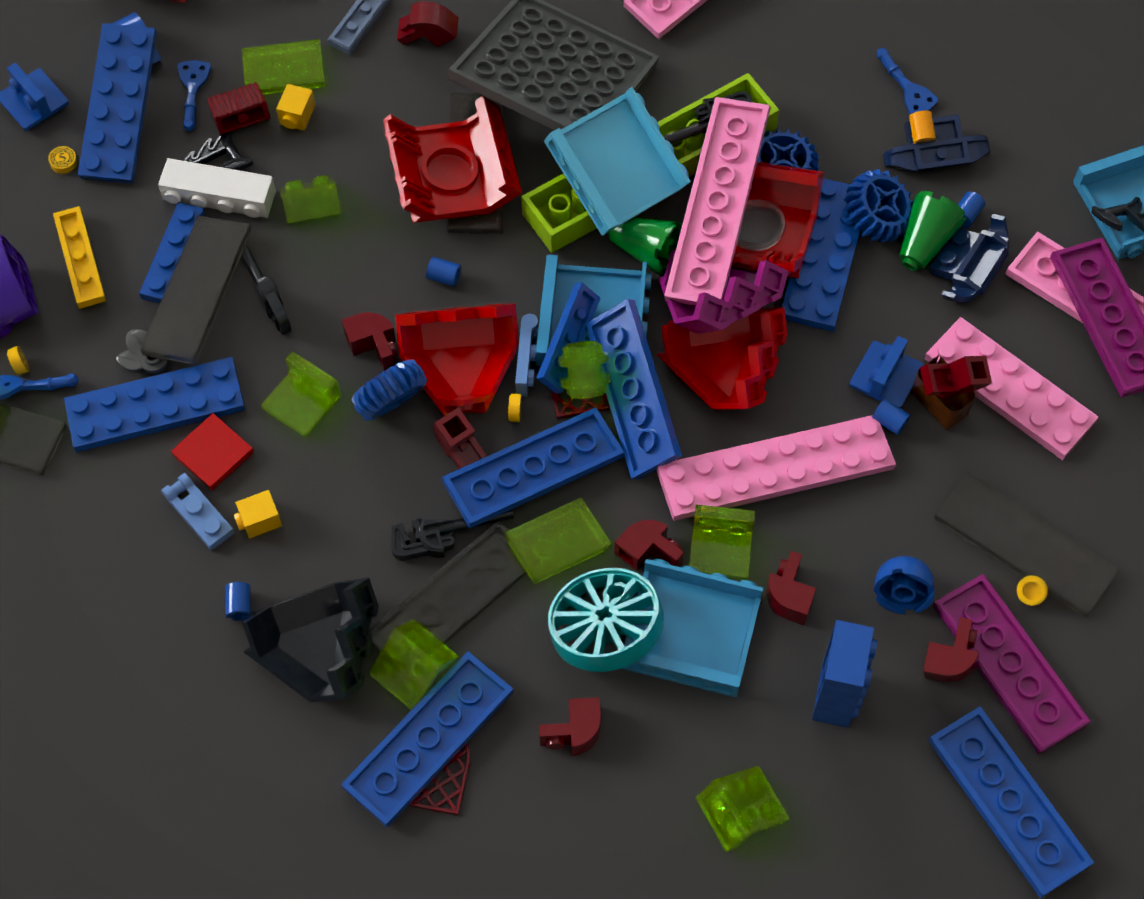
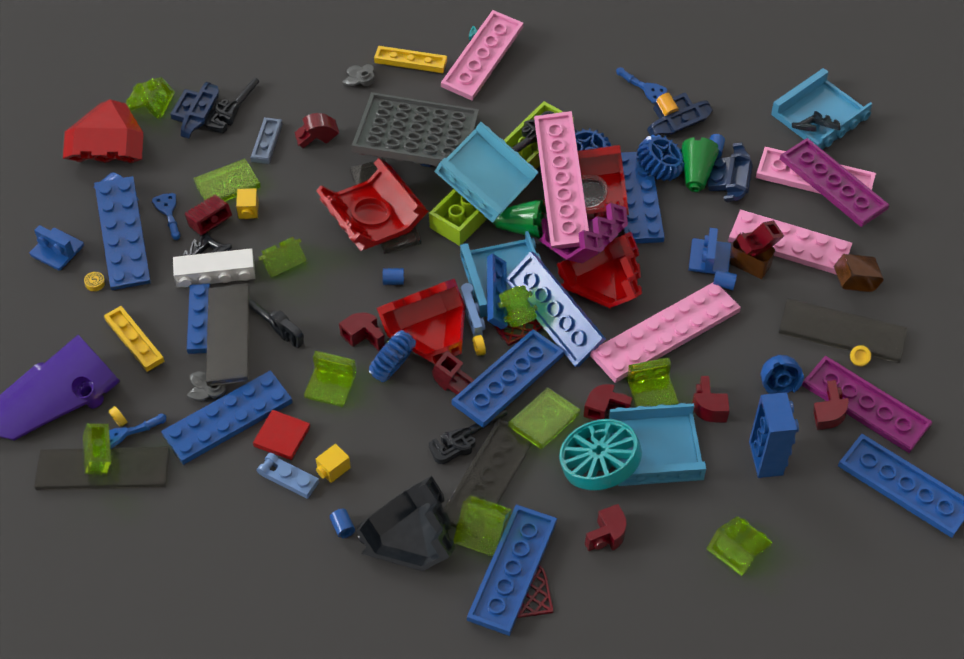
camera: 20 degrees left, 10 degrees down
(1084, 466) = (859, 273): none -> reddish brown piece

